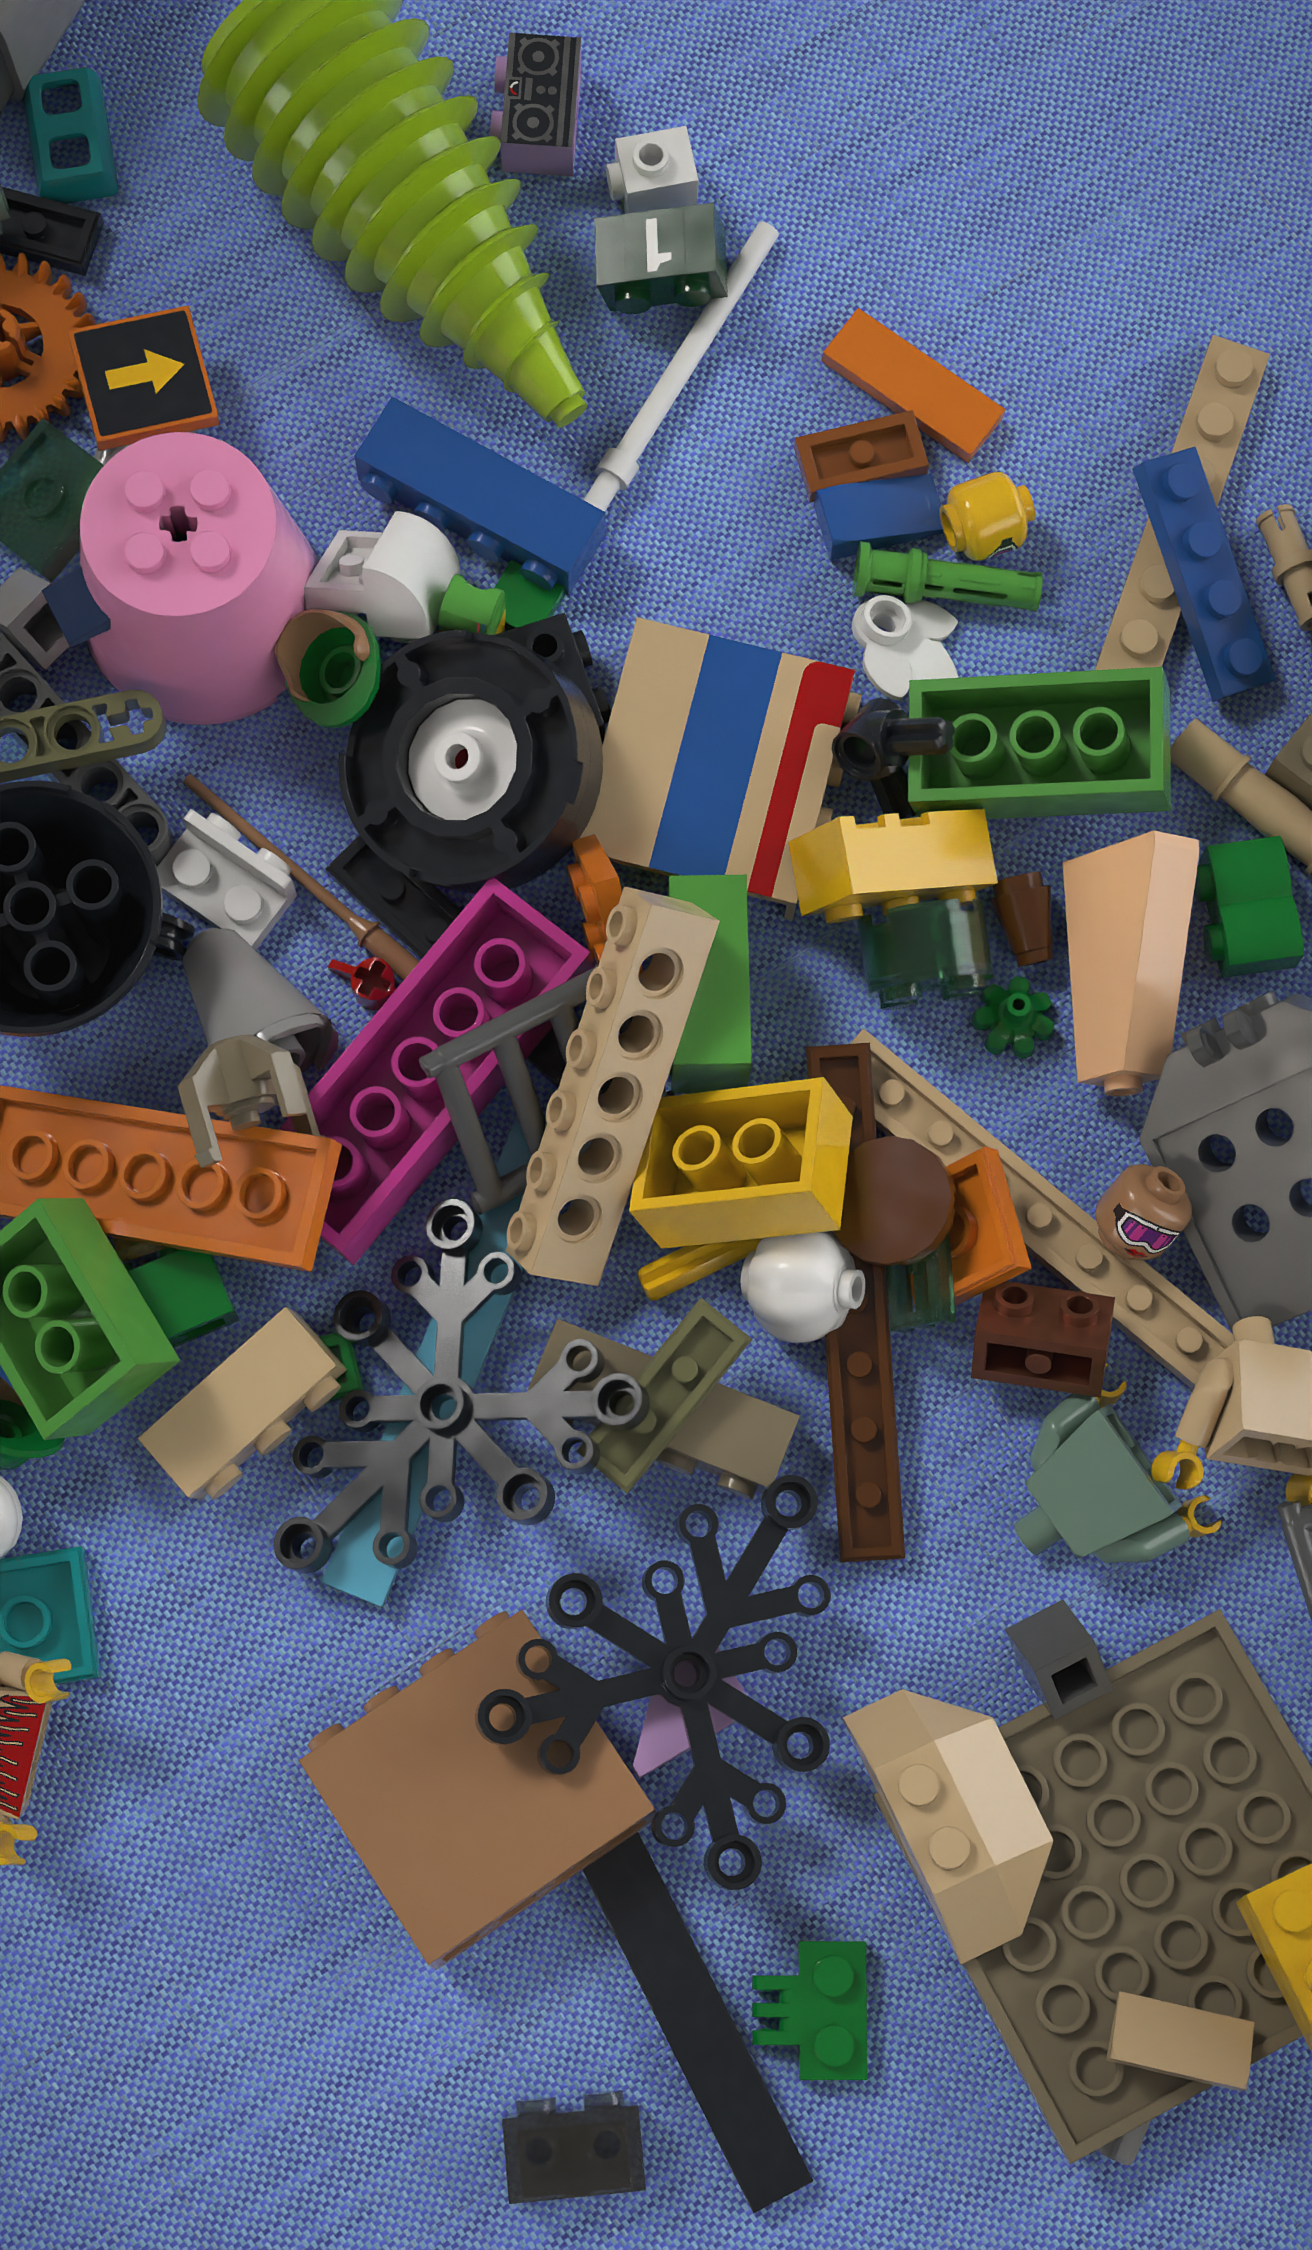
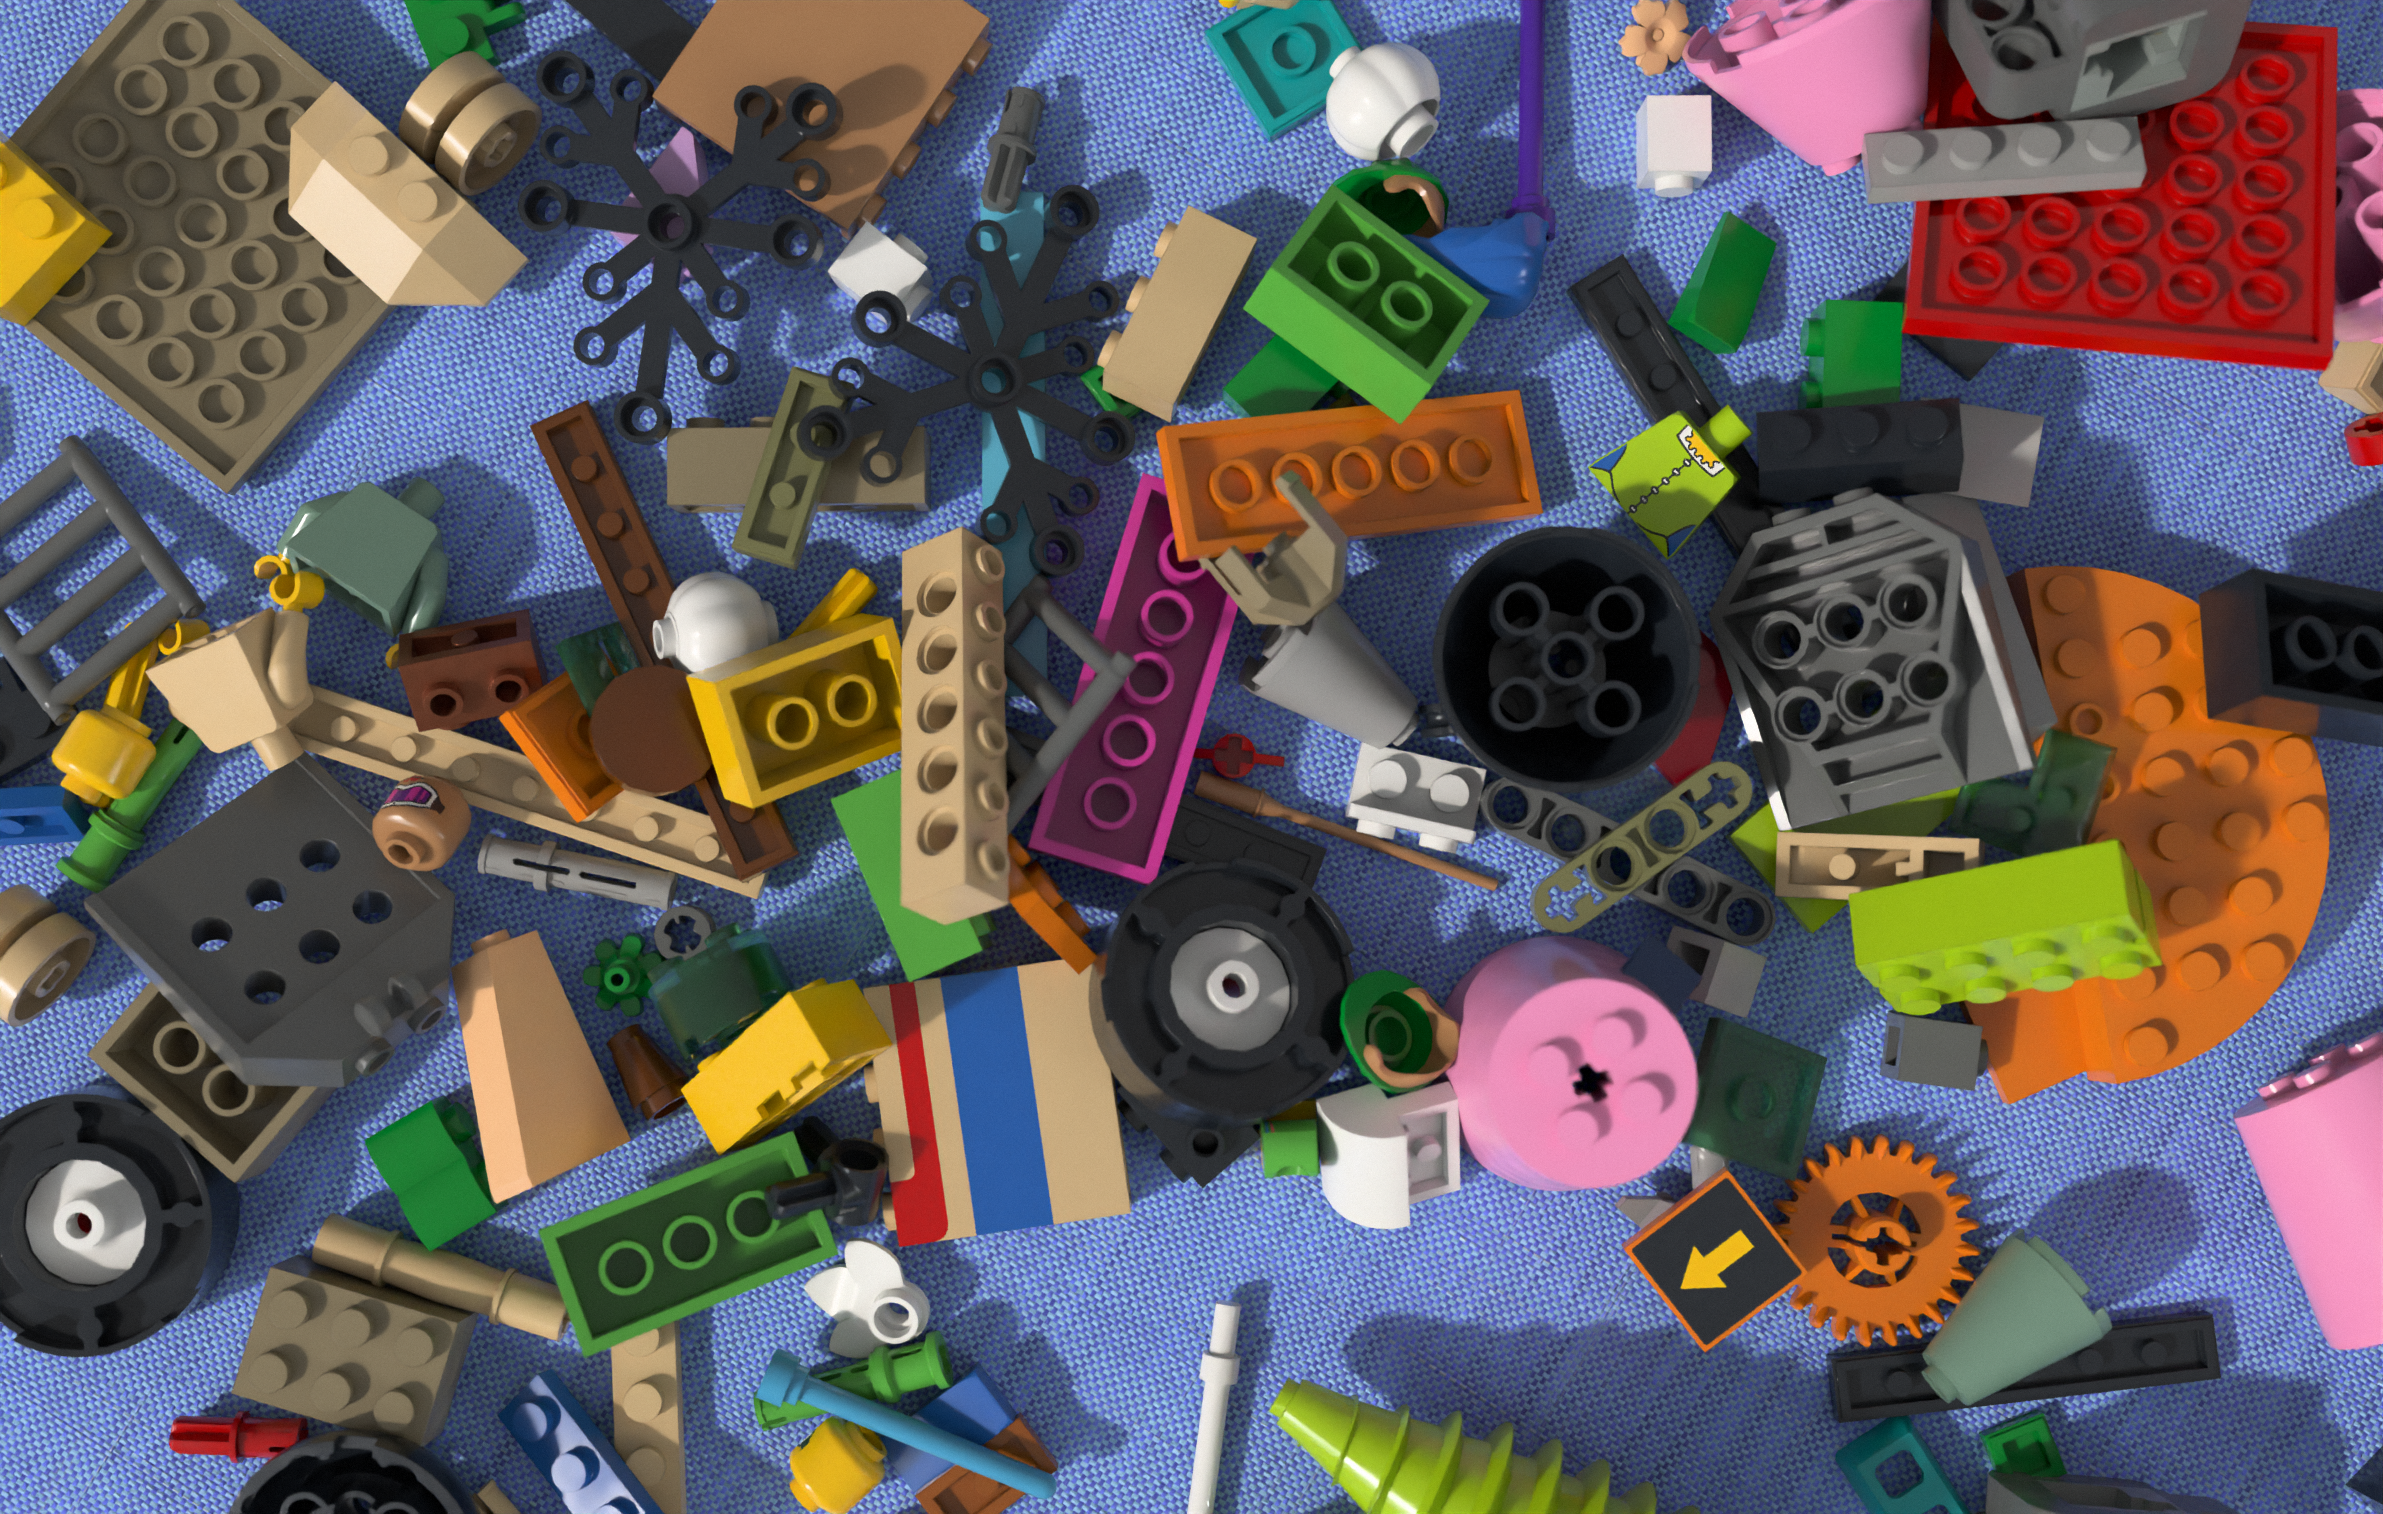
camera: 160 degrees right, 10 degrees up
(332, 1633) = (1012, 149): none -> dark grey axle
(479, 496) = (1339, 1279): blue brick -> none
(505, 1560) = (878, 263): none -> white brick
(525, 600) = (1250, 1198): green tile -> none
(845, 1870) = (470, 123): none -> tan wheel
(924, 1027) = (667, 941): none -> dark grey bush
(1000, 598) = (790, 1381): none -> dark azure piece
(1021, 1123) = (505, 858): none -> light grey pin
(1059, 1659) = (351, 385): dark grey brick -> none
(1181, 2041) = (110, 84): tan slope -> none

